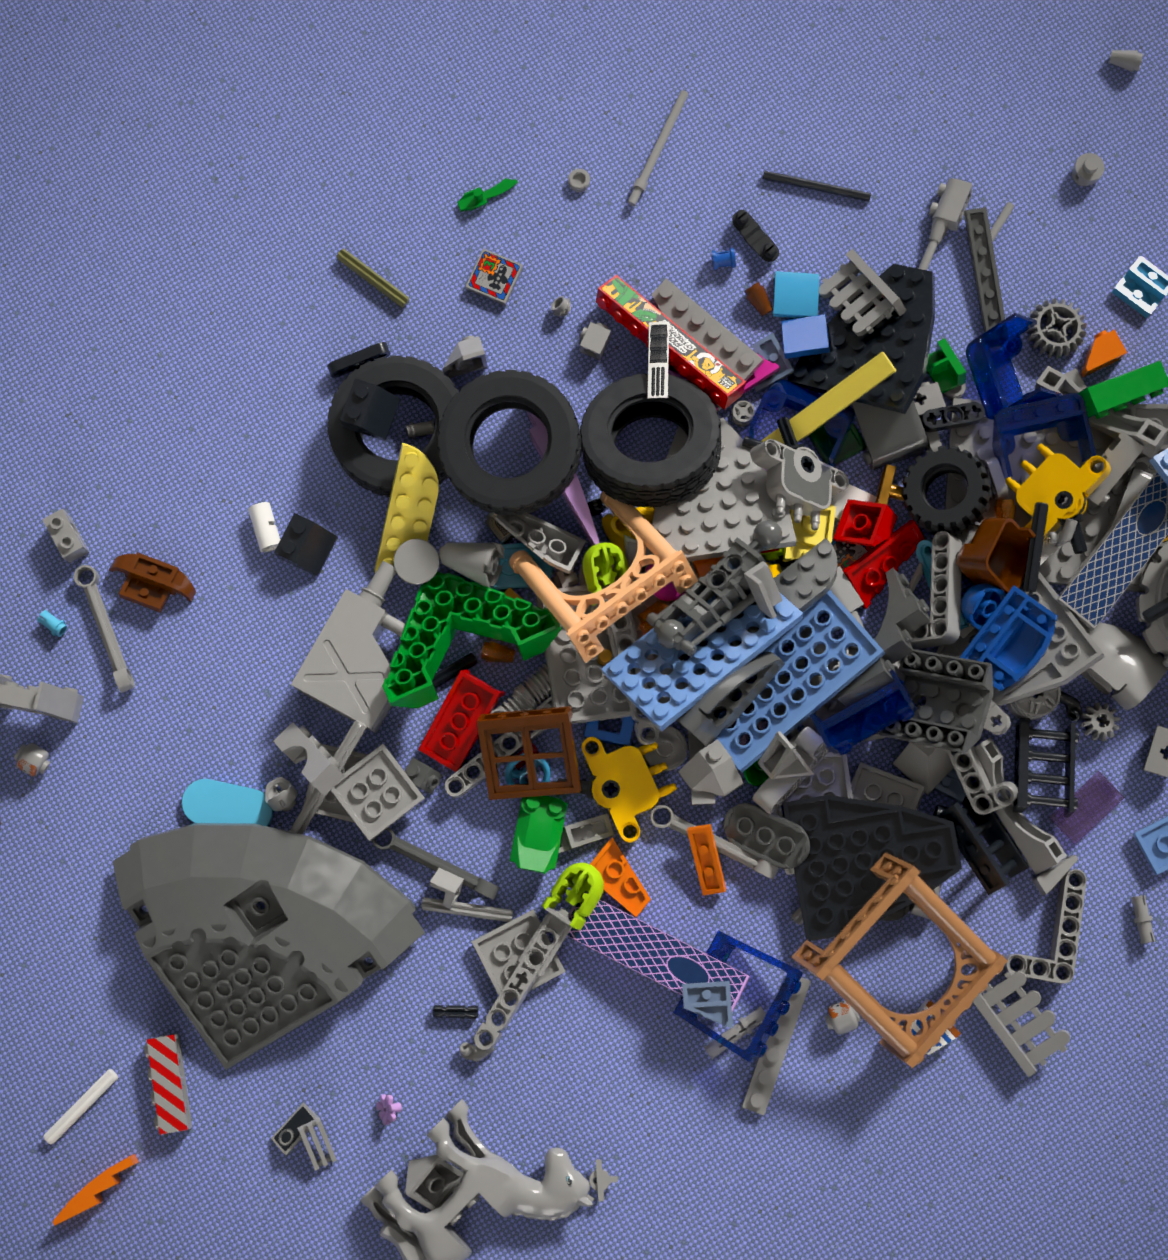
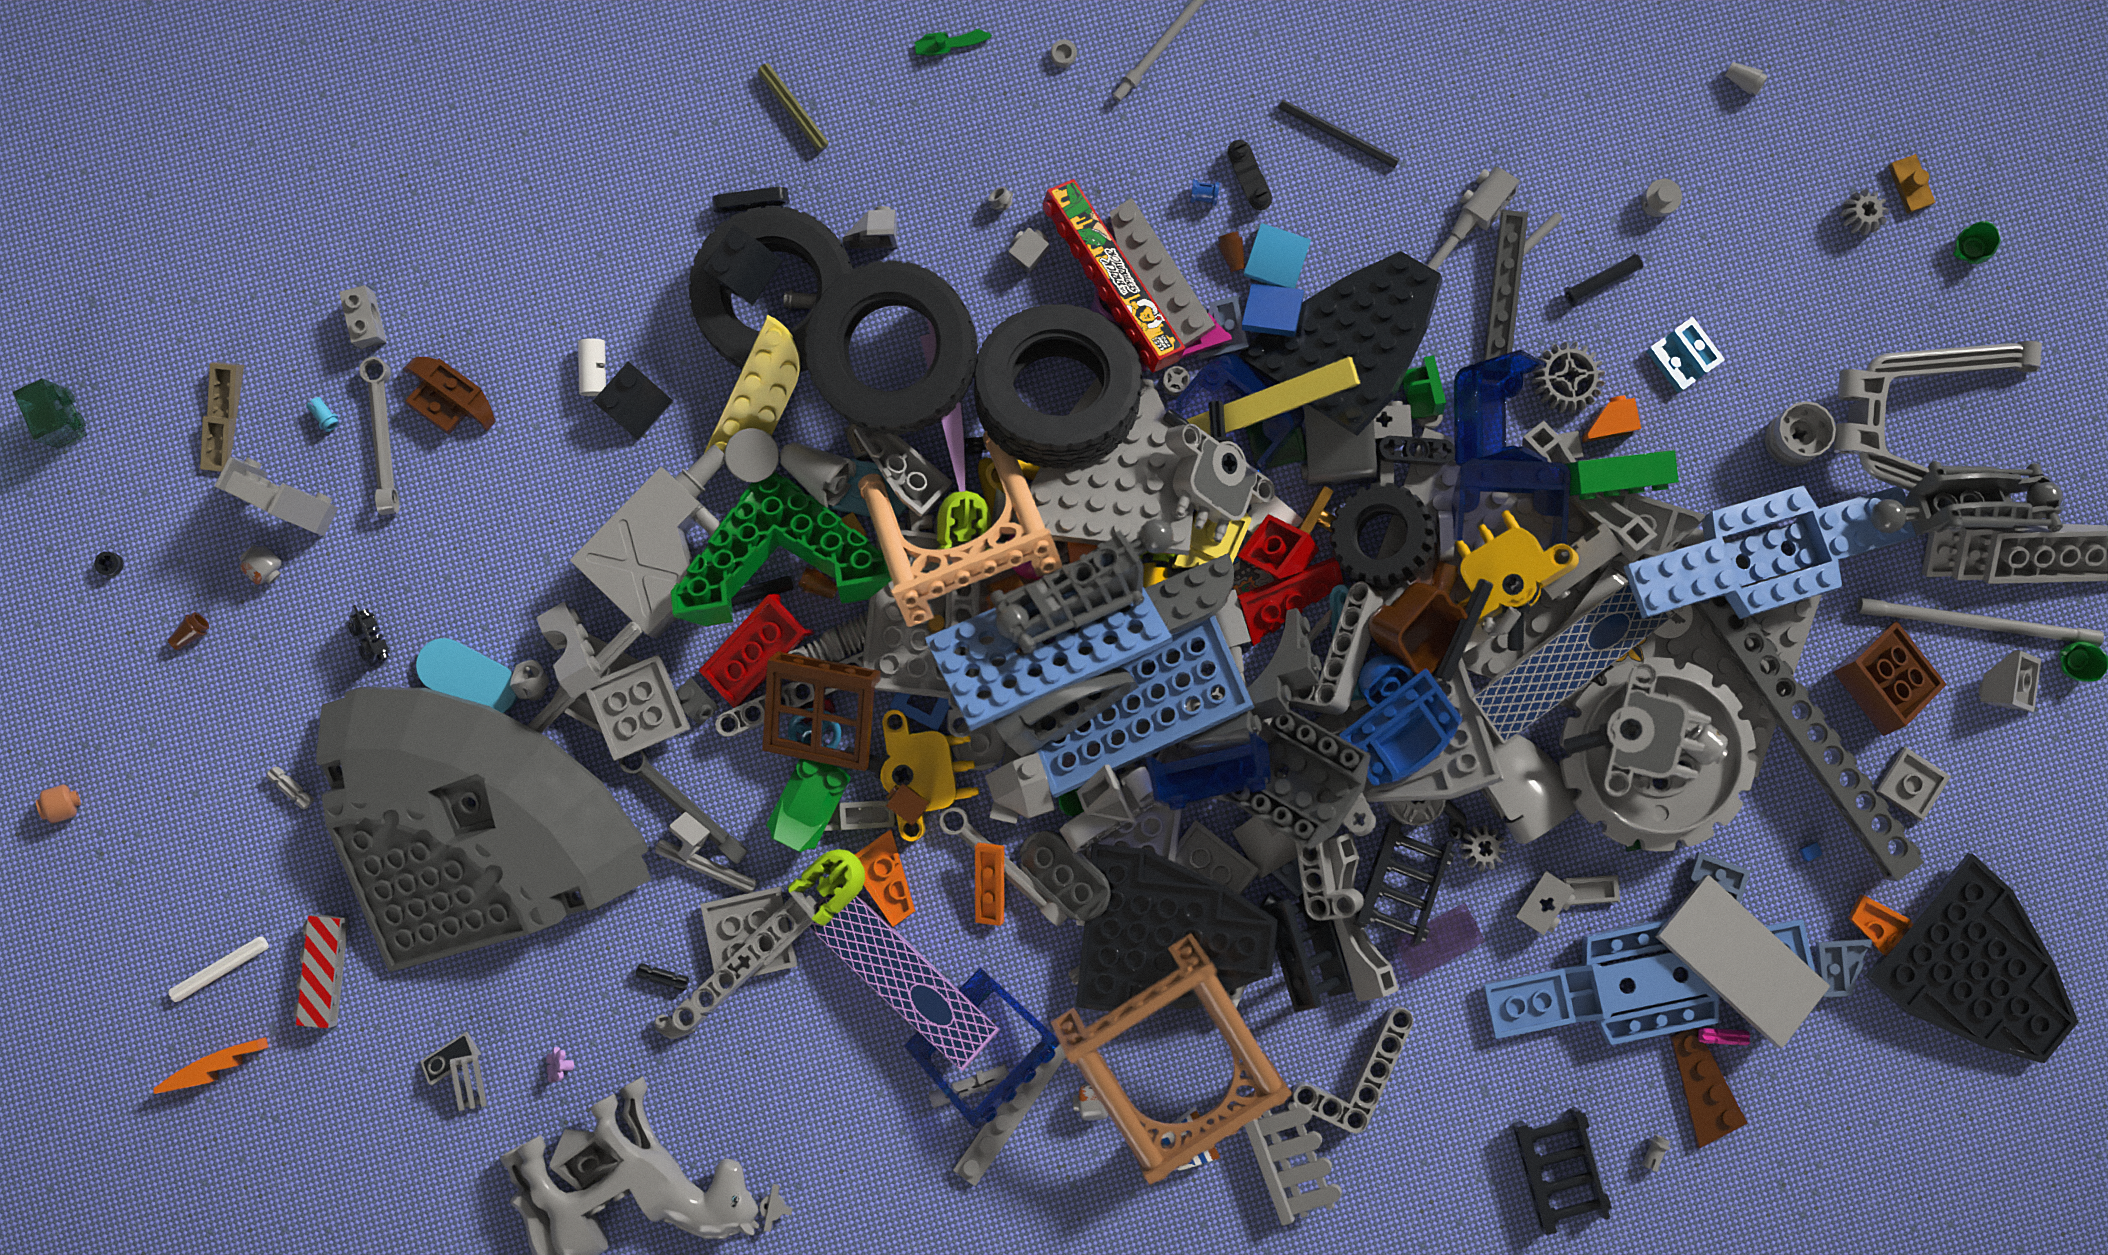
camera: 15 degrees right, 5 degrees up
(102, 938) = (290, 787): none -> light grey axle
(129, 787) = (358, 626): none -> black hinge
(494, 277) = (933, 143): tile -> none
(621, 810) = (907, 803): none -> reddish brown brick
(658, 360) = (1091, 294): sticker -> none
(710, 1001) = (945, 1045): sand blue wing -> none
(763, 588) = (1133, 597): light grey panel -> none
(870, 297) = (1358, 286): light grey fence -> none
(1049, 878) = (1371, 1010): light grey slope -> none
(1060, 244) = (1603, 279): none -> black pin
(1143, 919) = (1465, 1084): light grey pin -> none

